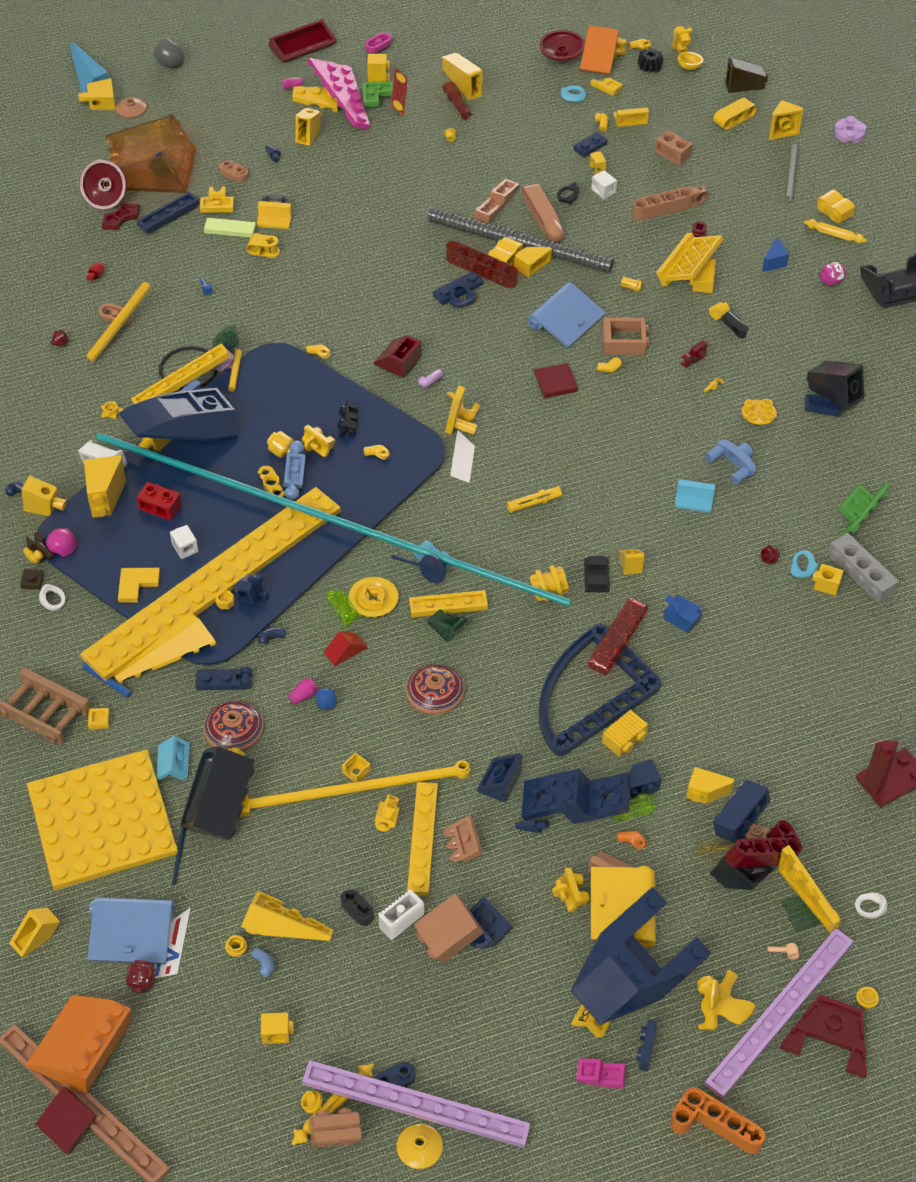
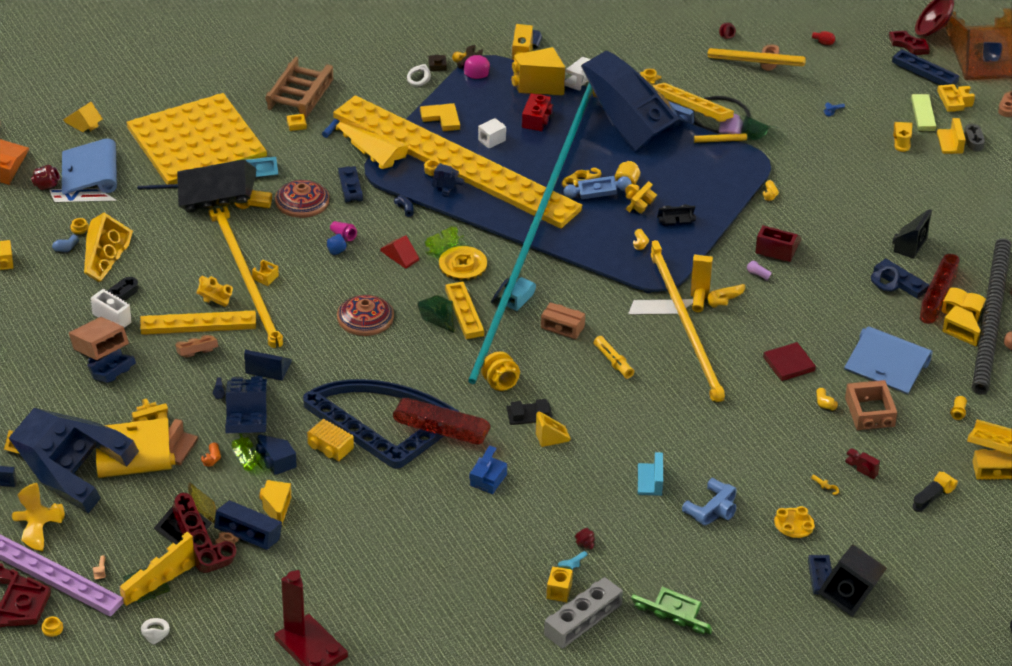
camera: 80 degrees right, 10 degrees down
(402, 440) = (717, 391): none -> yellow hinge
(415, 262) = (913, 235): none -> black slope
(479, 528) = (563, 320): none -> nougat brick

